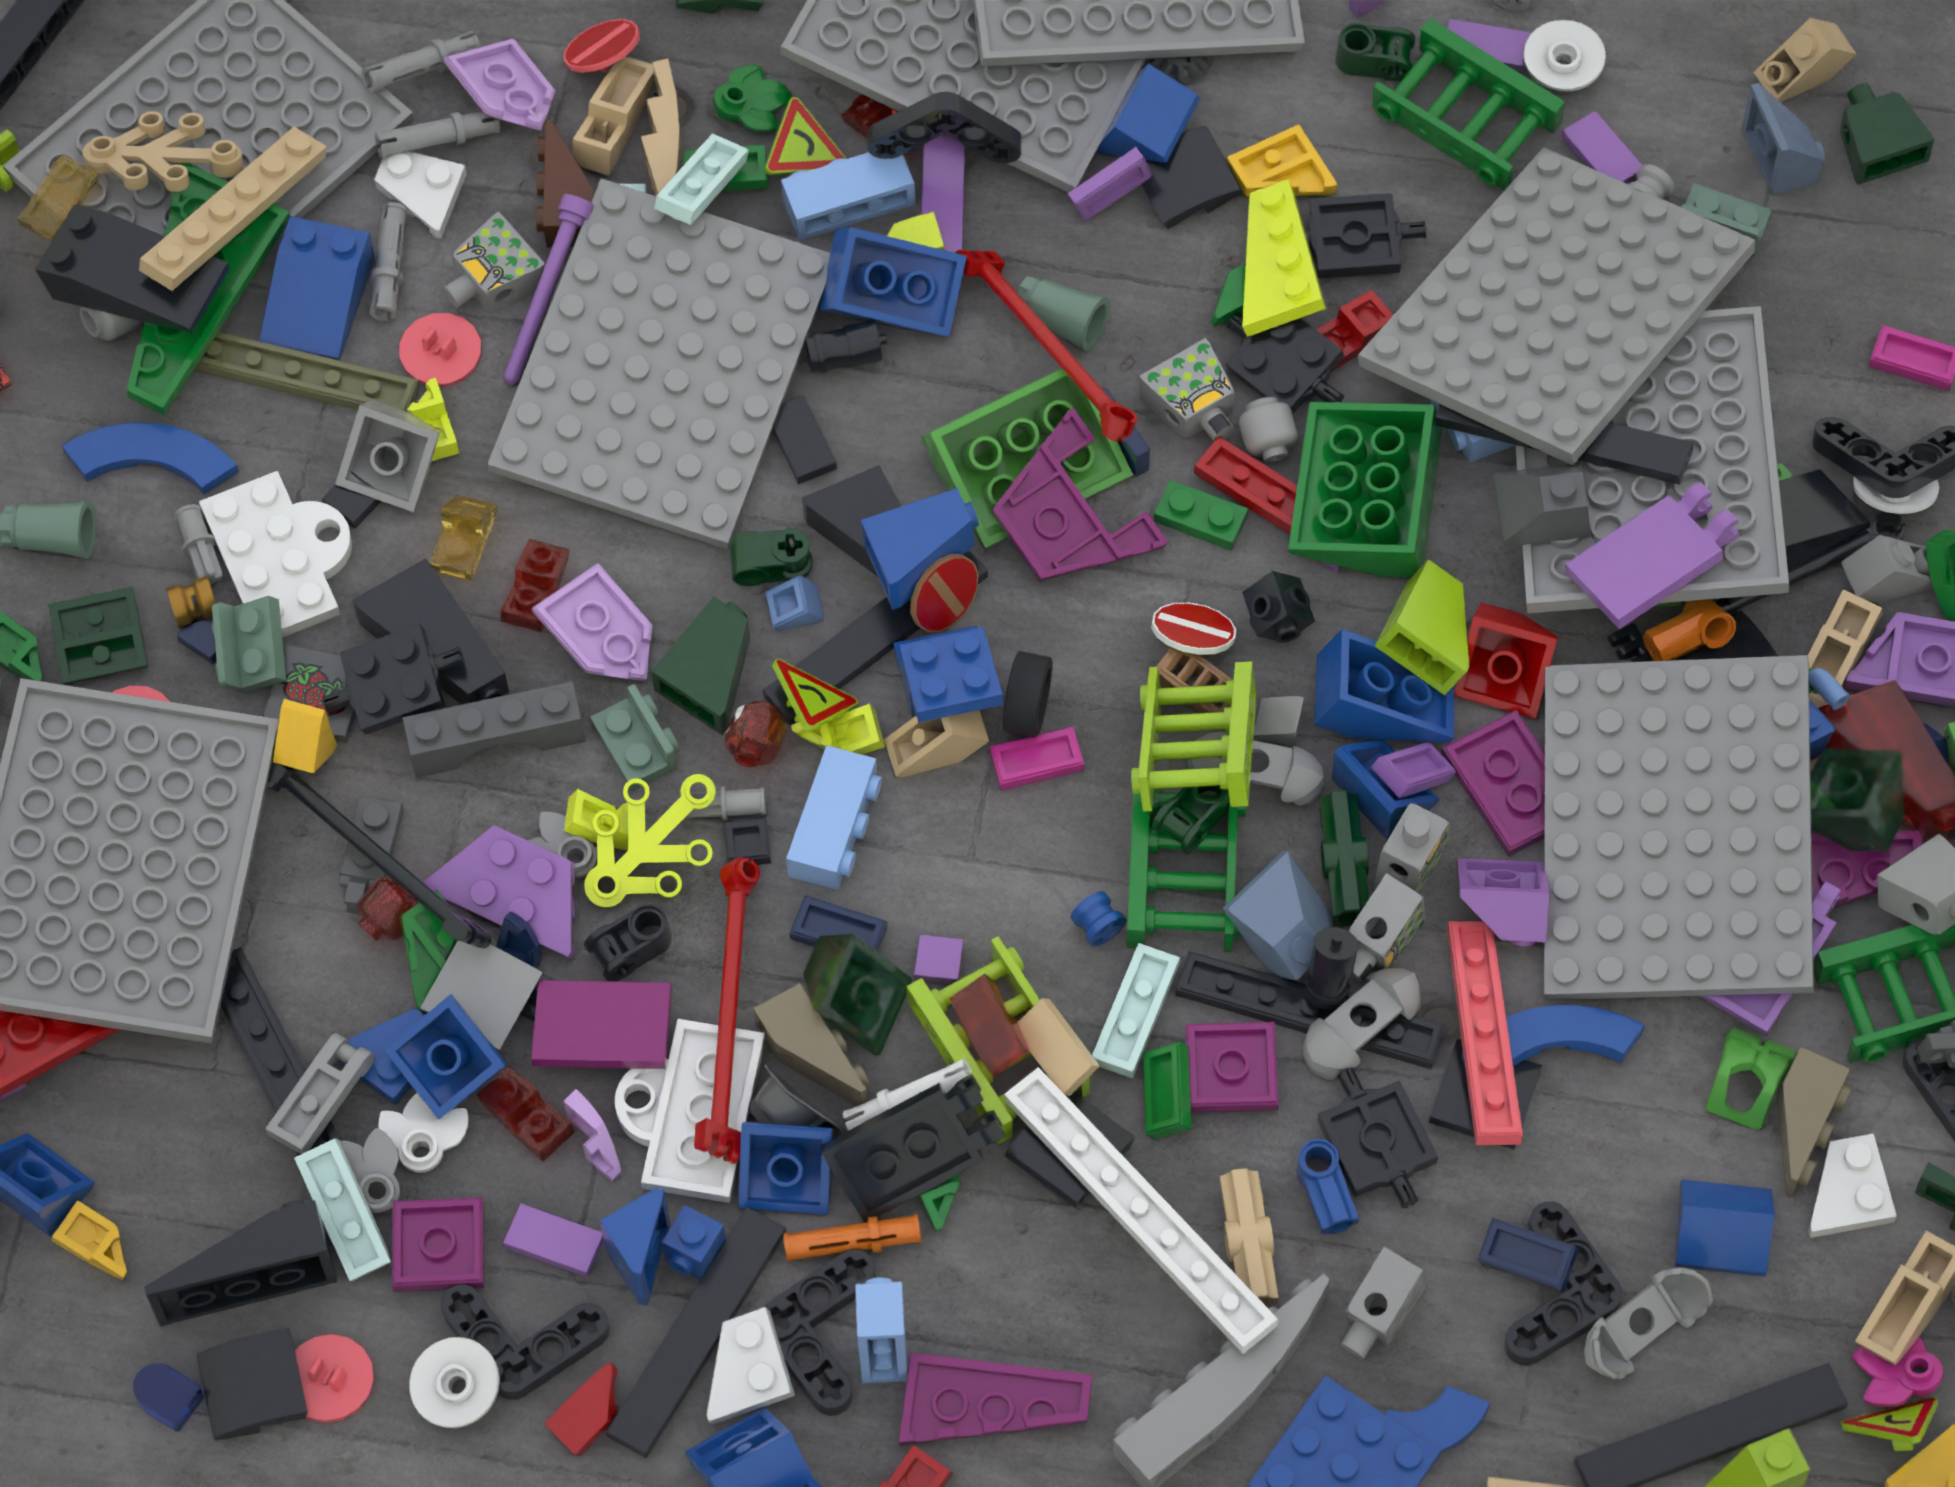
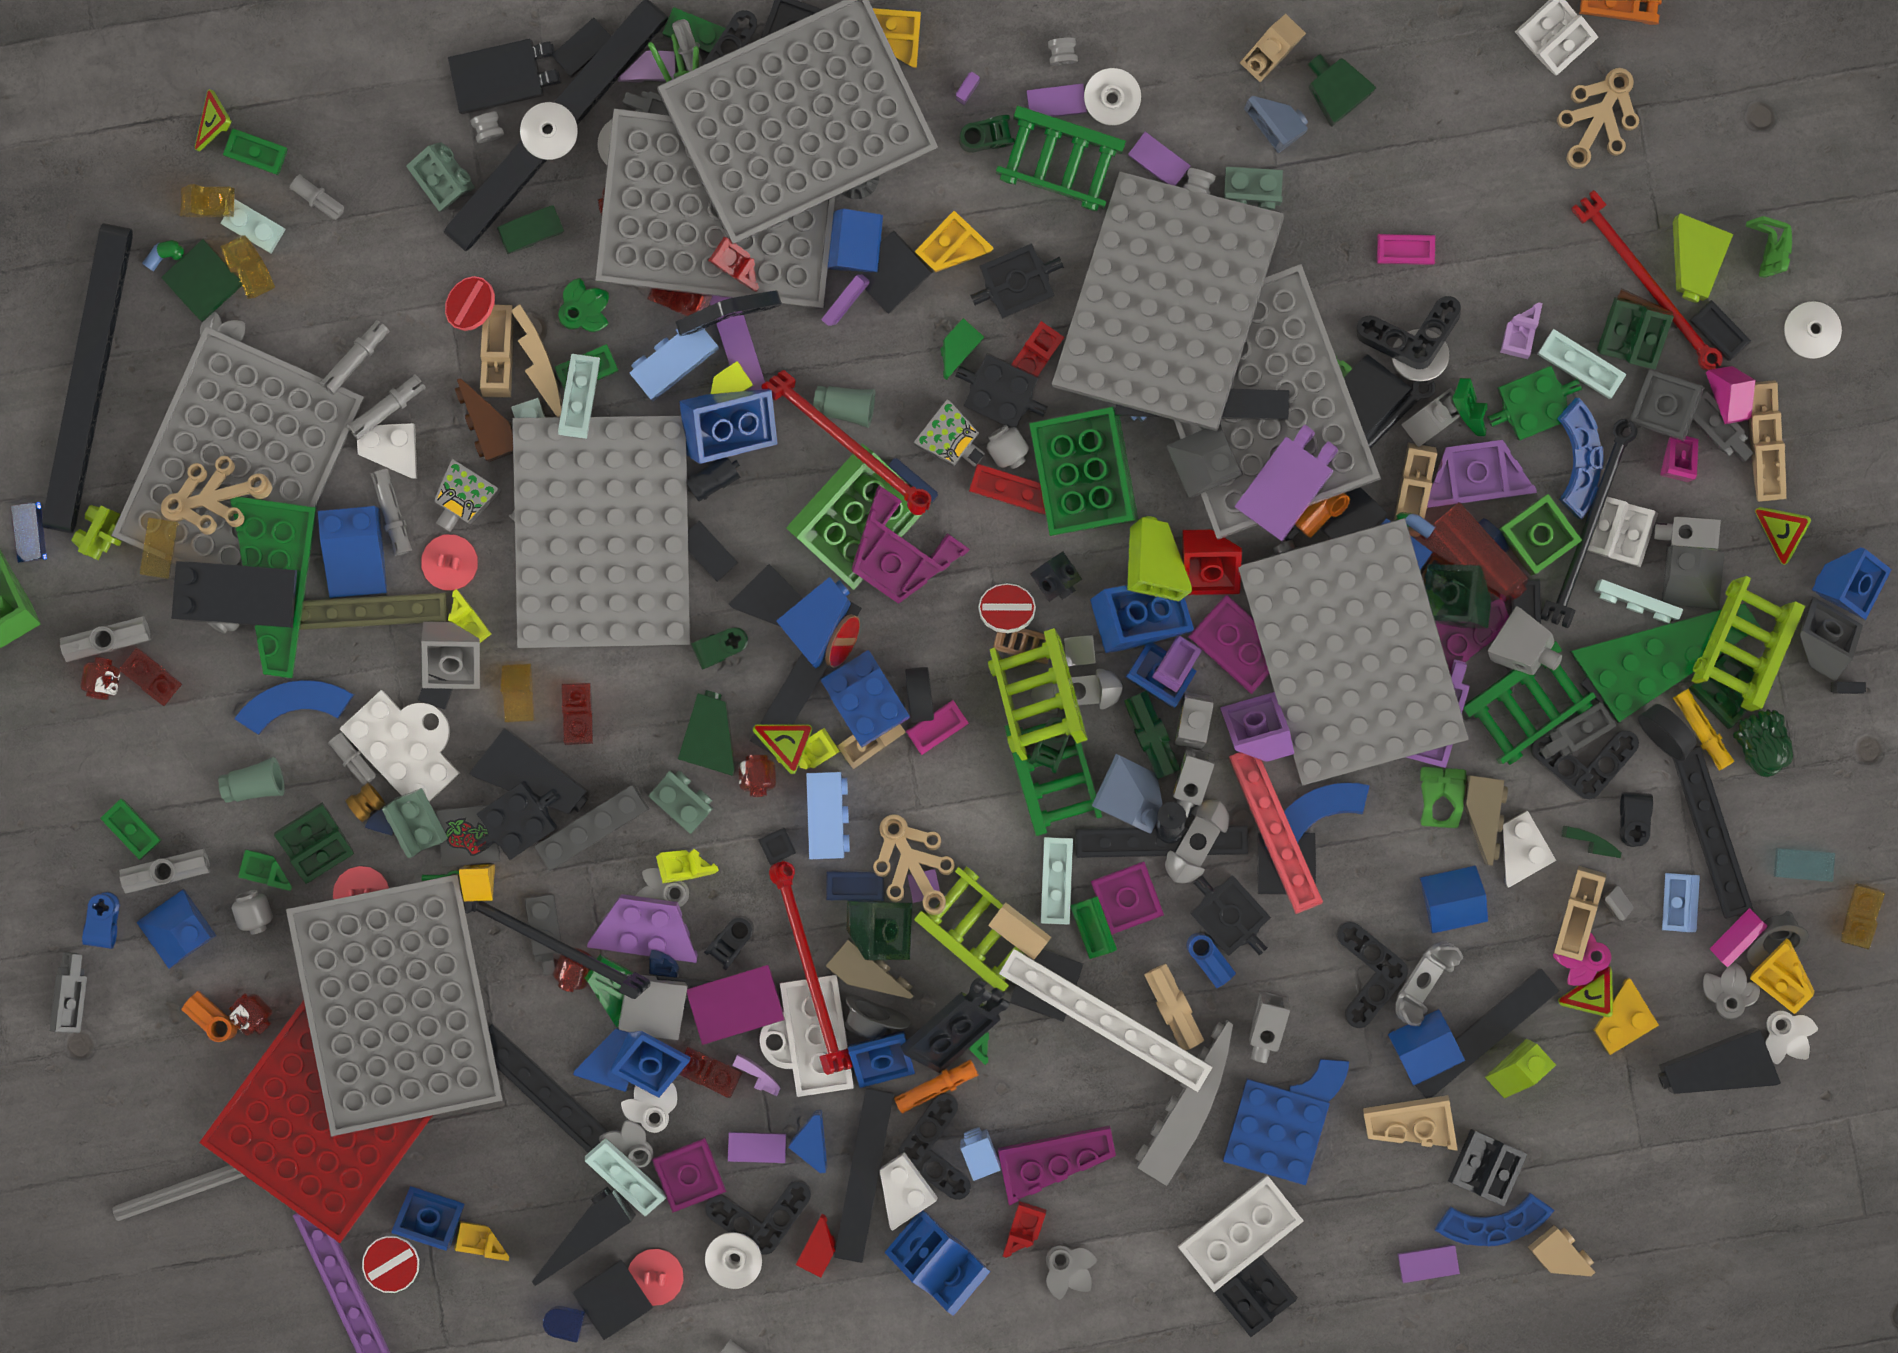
camera: 20 degrees left, 25 degrees up
(232, 208) = (280, 525): tan plate -> none
(319, 1094) = (581, 1109): light grey plate -> none
(504, 83) = (416, 355): lavender tile -> none
(572, 215) = (504, 449): medium lavender piece -> none
(598, 626) = (630, 731): lavender tile -> none
(645, 846) = (719, 875): neon yellow plant -> none
(693, 1242) = (843, 1126): blue brick -> none
(732, 803) = (753, 826): light grey axle -> none
(794, 604) = (747, 670): medium blue slope -> none
(800, 143) = (631, 335): piece -> none
(885, 1099) = (931, 996): white pin -> none
(933, 913) = (911, 860): none -> tan plant
(975, 82) = (735, 263): none -> slope
(989, 1025) = (973, 932): clear red slope -> none
(1098, 918) = (1013, 828): blue wheel -> none
(1201, 515) = (983, 520): green plate -> none
(1279, 263) = (977, 328): neon yellow wing -> none
(1528, 1254) = (1344, 961): dark blue tile -> none
(1616, 1419) = (1426, 1048): none -> blue slope

